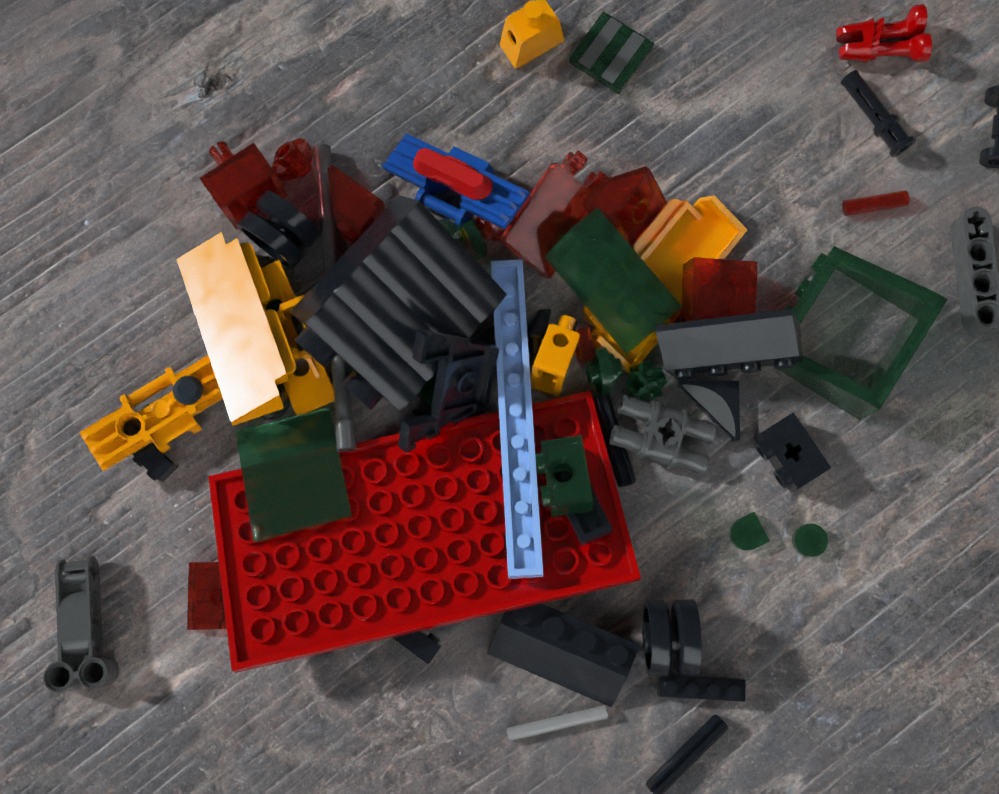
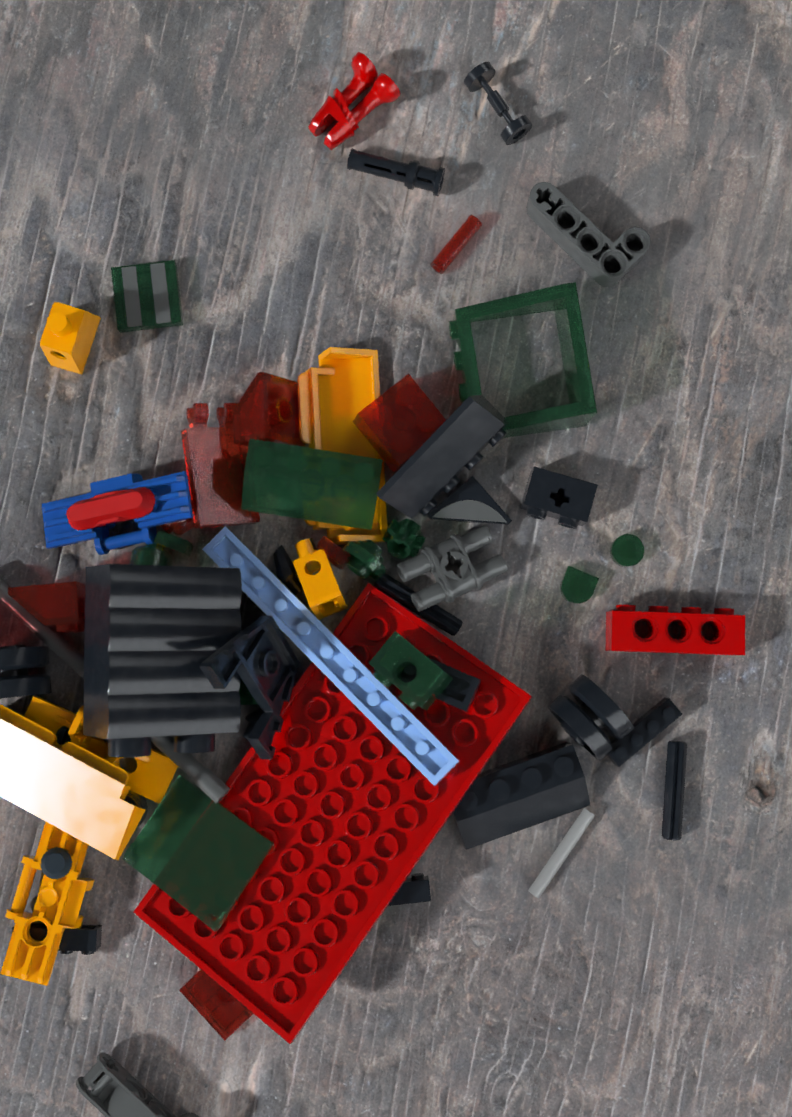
camera: 50 degrees left, 5 degrees up
(840, 664) = (726, 640): none -> red brick

